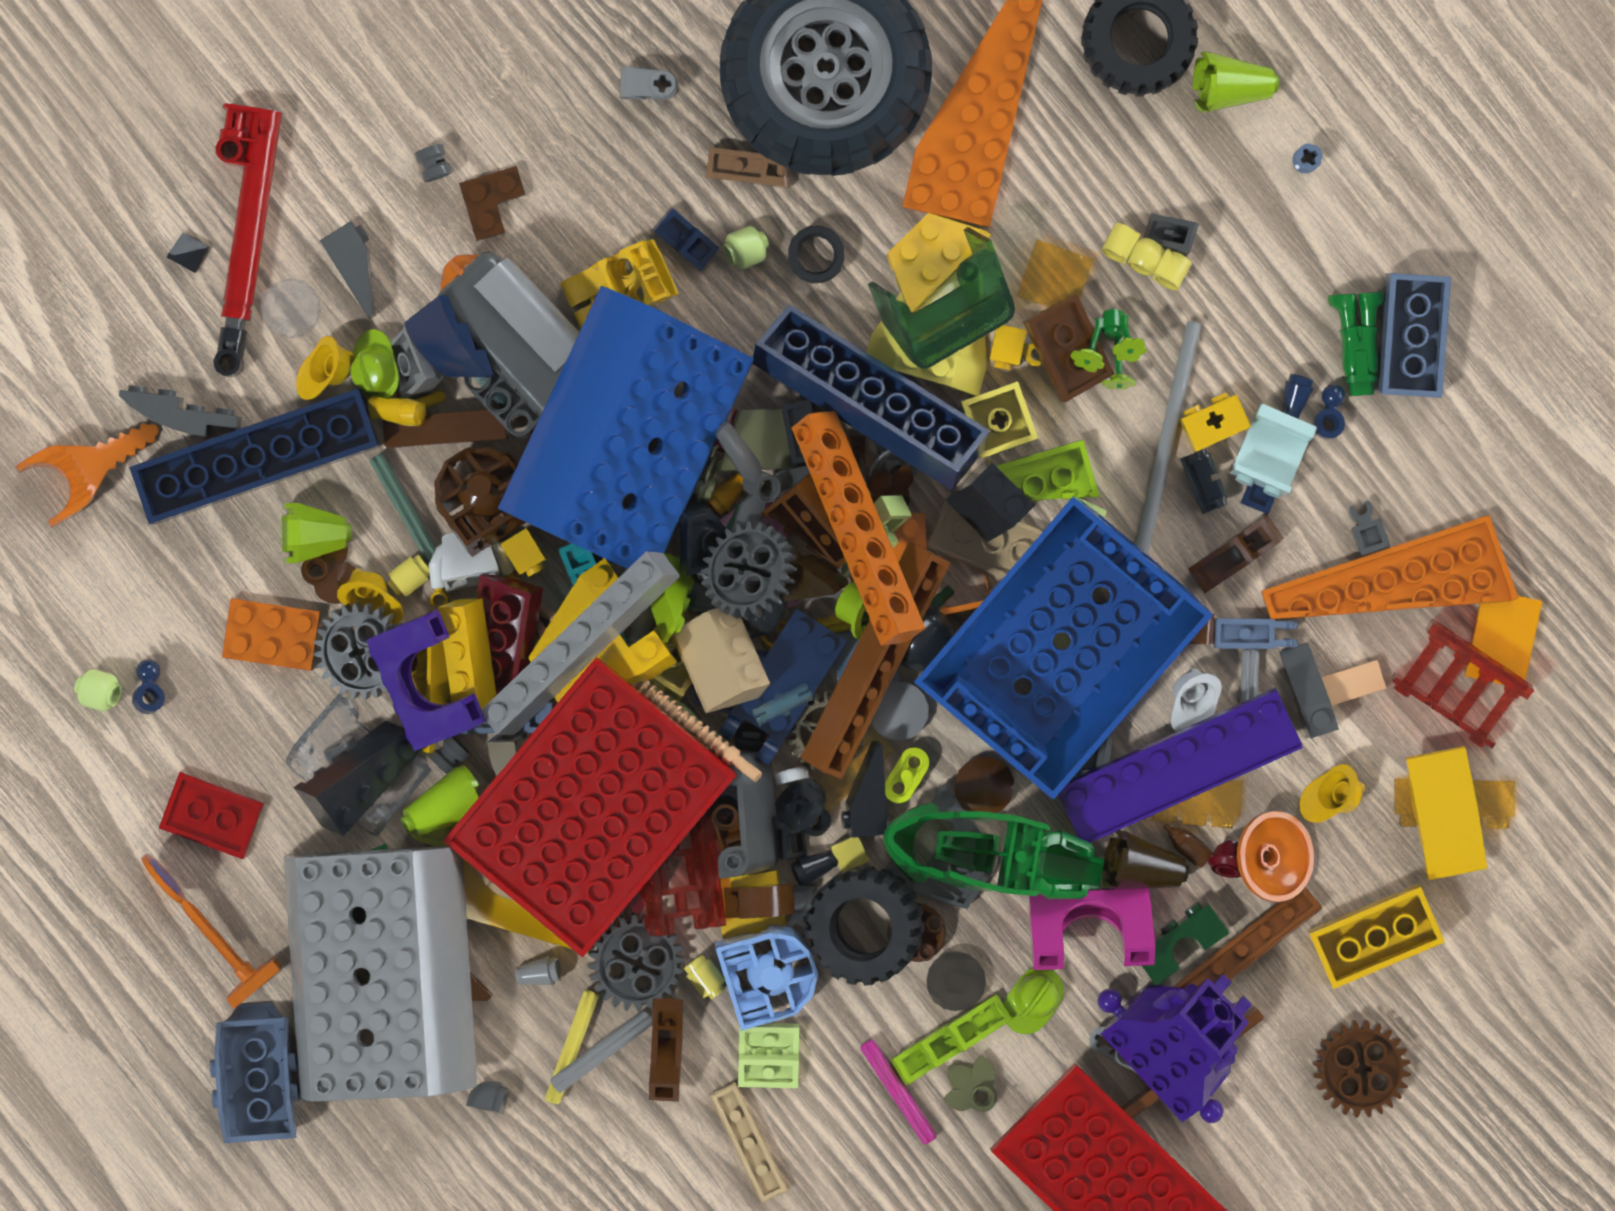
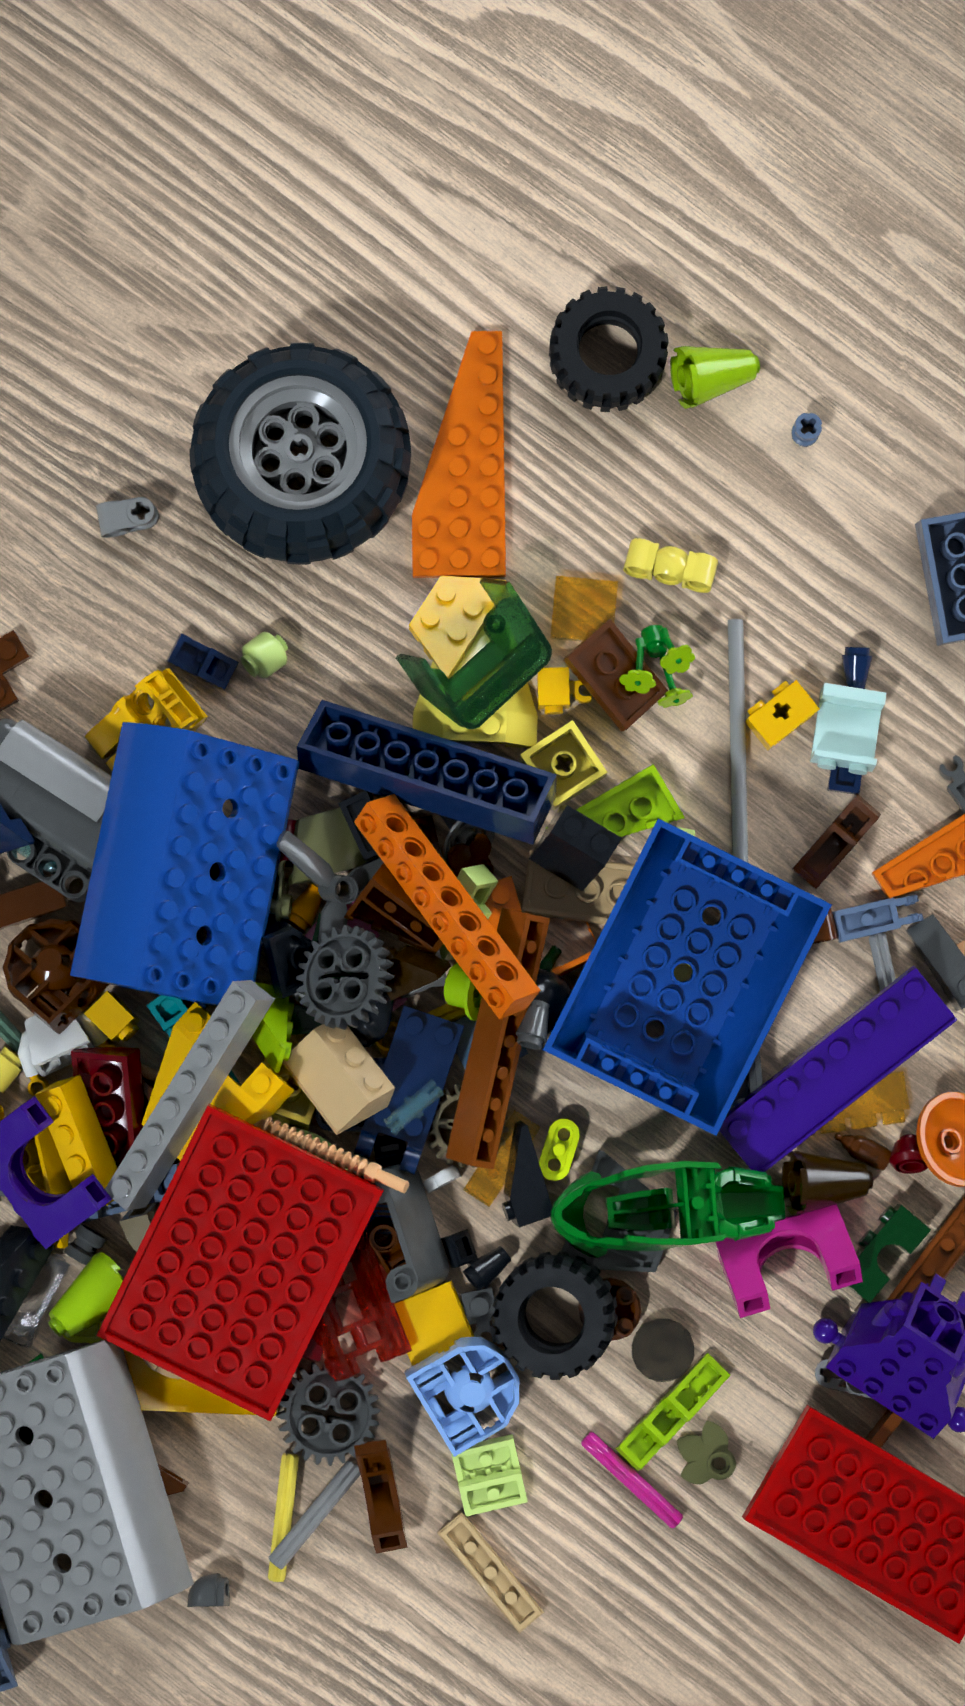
camera: 20 degrees left, 5 degrees down
(539, 972) = (232, 1447): light grey cone -> none
(641, 626) = (249, 1060): light grey cone -> none
(705, 977) = (403, 1410): light yellow brick -> none
(744, 168) = (245, 575): medium nougat plate -> none
(759, 901) = (439, 1317): reddish brown brick -> none
(793, 256) = (322, 626): black tyre -> none
(800, 807) = (459, 1208): black tile -> none
(849, 853) = (521, 1244): light yellow slope -> none
(901, 712) = (537, 1086): light grey tile -> none
(911, 658) = (534, 1026): none -> dark grey cone
(984, 785) = (641, 1139): reddish brown dish -> none
(1033, 1000) = (747, 1350): lime piece -> none
(1172, 233) = (691, 535): dark grey slope -> none
(1194, 698) = (833, 998): white piece -> none
(1199, 469) = (793, 787): black hinge -> none
(1333, 397) = (894, 660): dark blue plate -> none
(1359, 341) = (906, 597): green piece -> none

